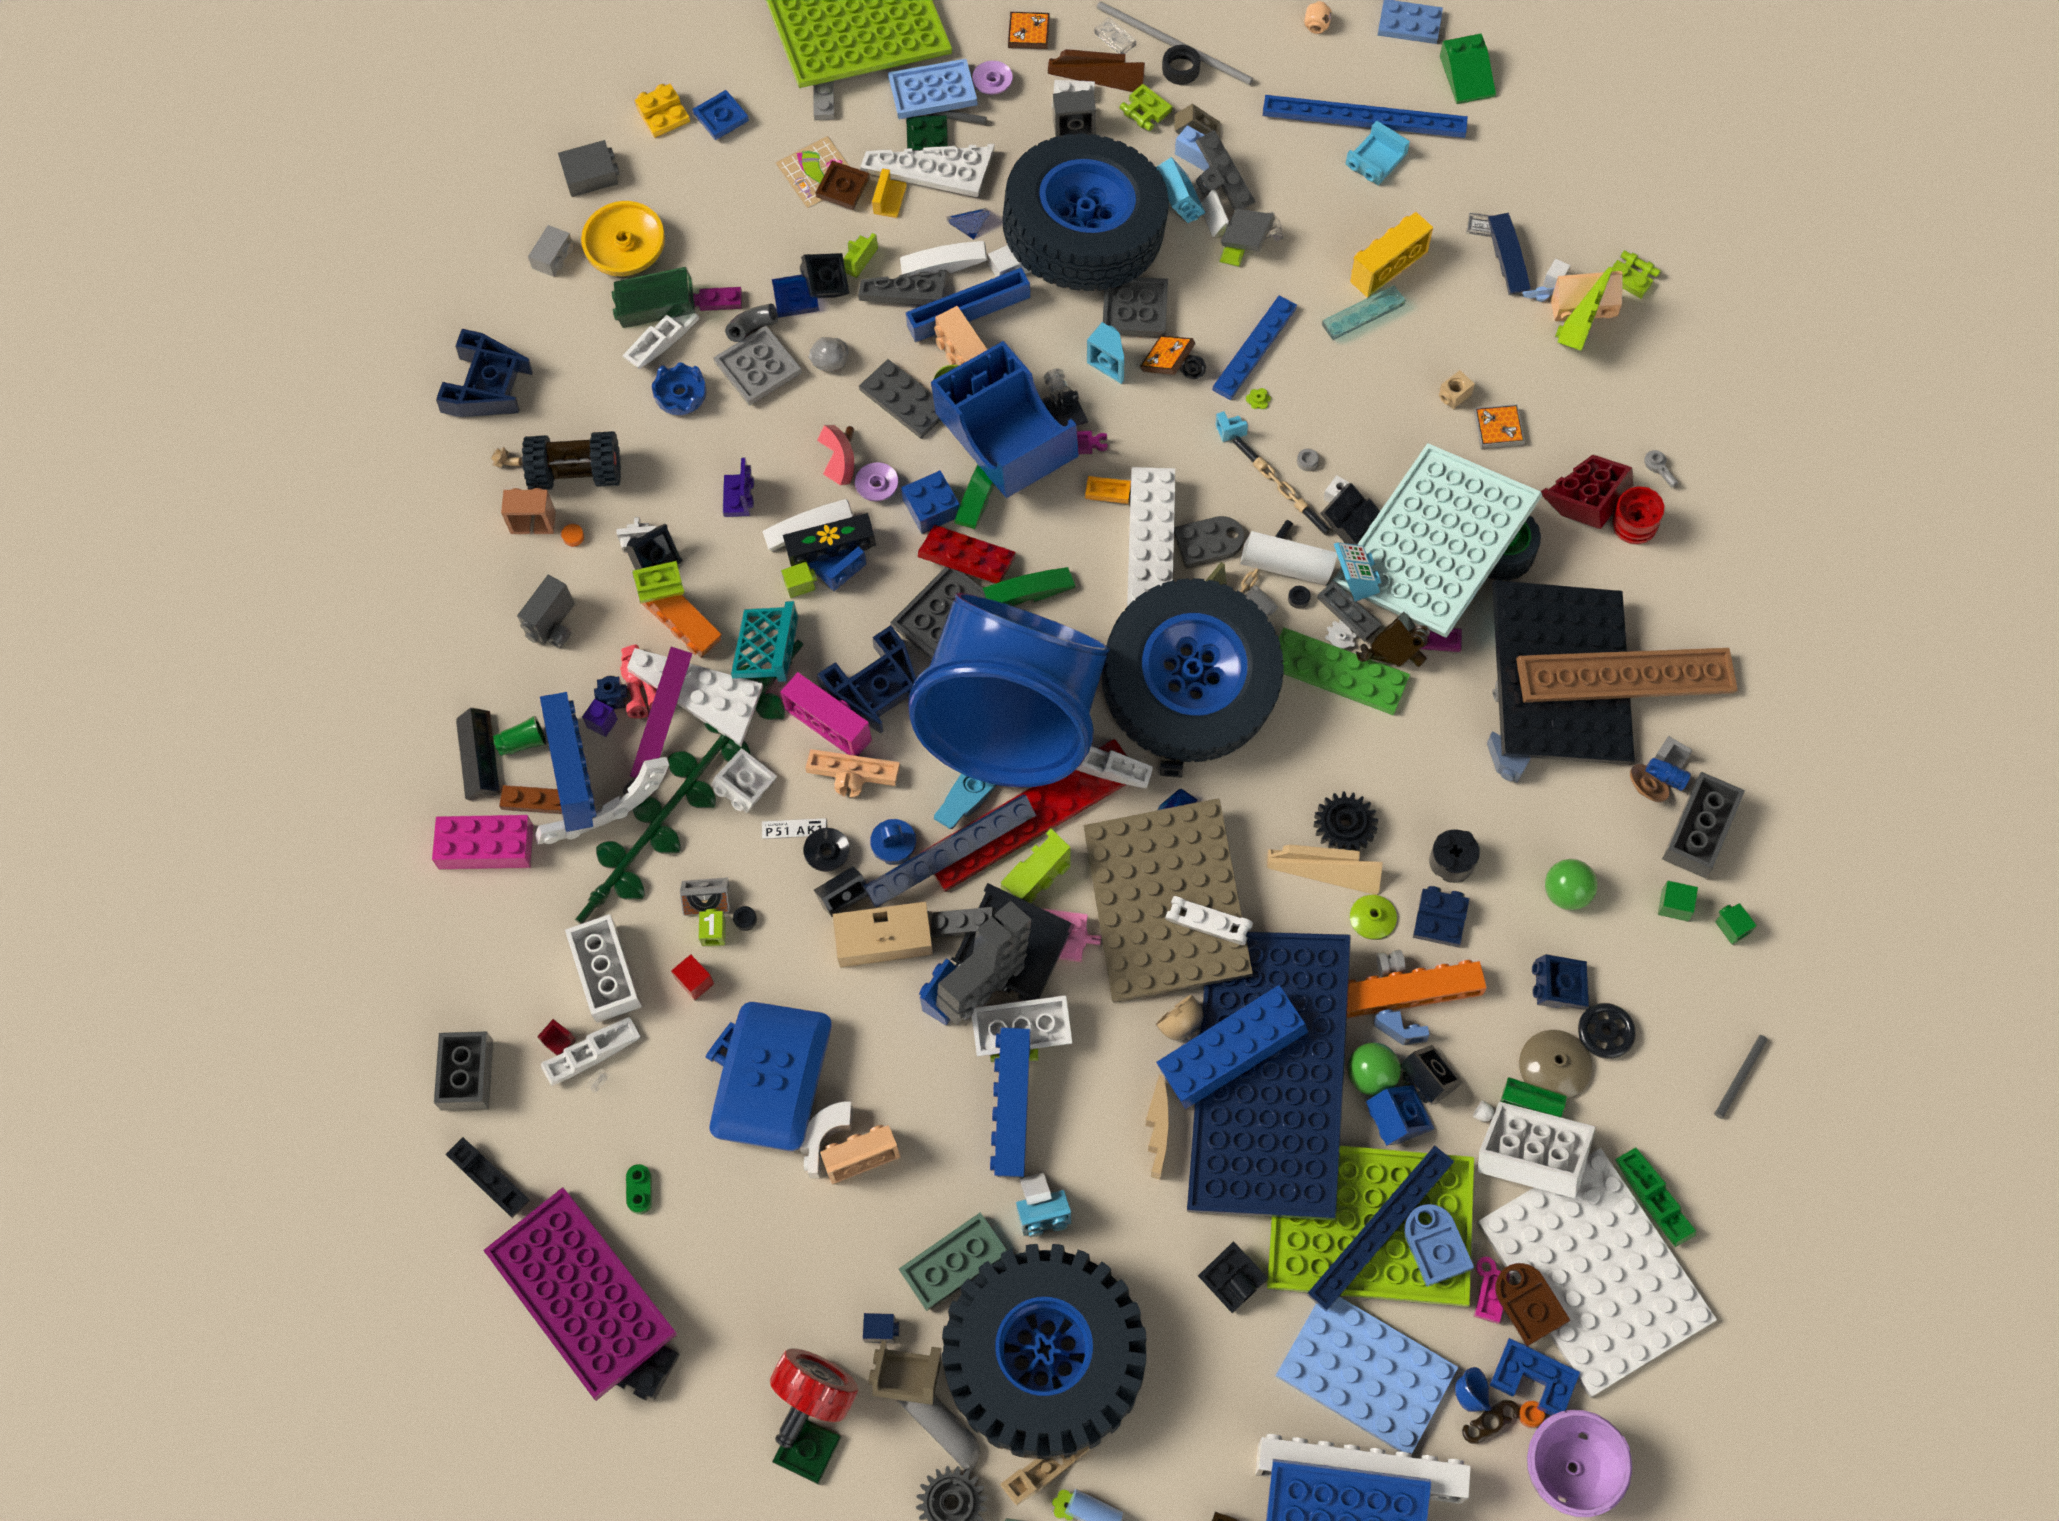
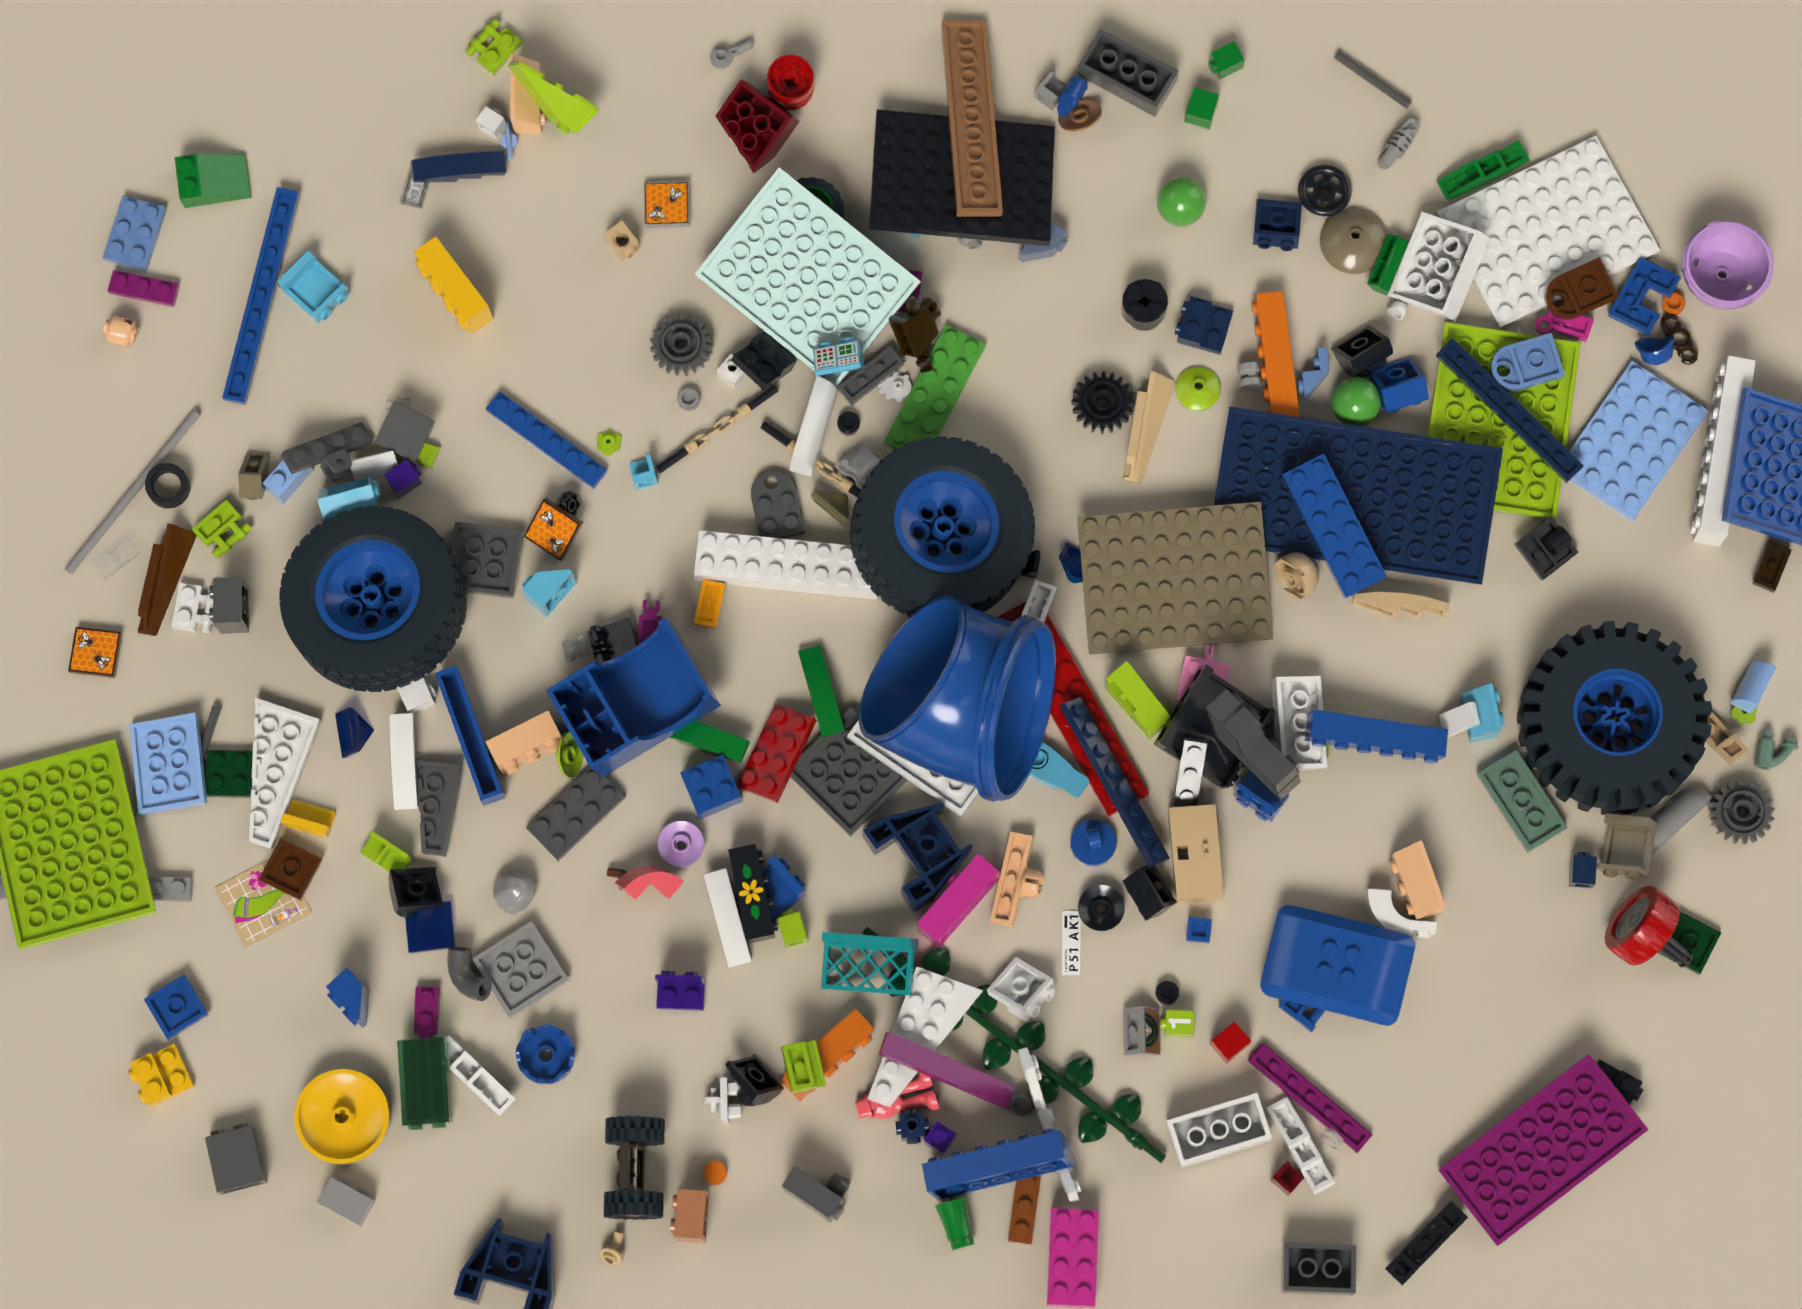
camera: 85 degrees left, 10 degrees up
(477, 753) = (969, 1269): black panel -> none
(639, 1060) = (1309, 1097): none -> magenta tile
(640, 1187) = (1440, 1098): green plate -> none
(726, 234) = (352, 995): none -> blue slope
(807, 943) = (1198, 930): none -> blue plate
(992, 71) = (154, 687): lavender dish -> none
(1204, 236) = (403, 478): none -> dark purple brick
(1208, 921) = (1207, 536): white plate -> none
(1360, 32) = (143, 288): none -> magenta plate
(1363, 312) = (516, 323): clear light blue plate -> none
(1374, 446) = (679, 331): none -> dark grey gear
(1672, 1105) = (1399, 143): none -> light grey hinge

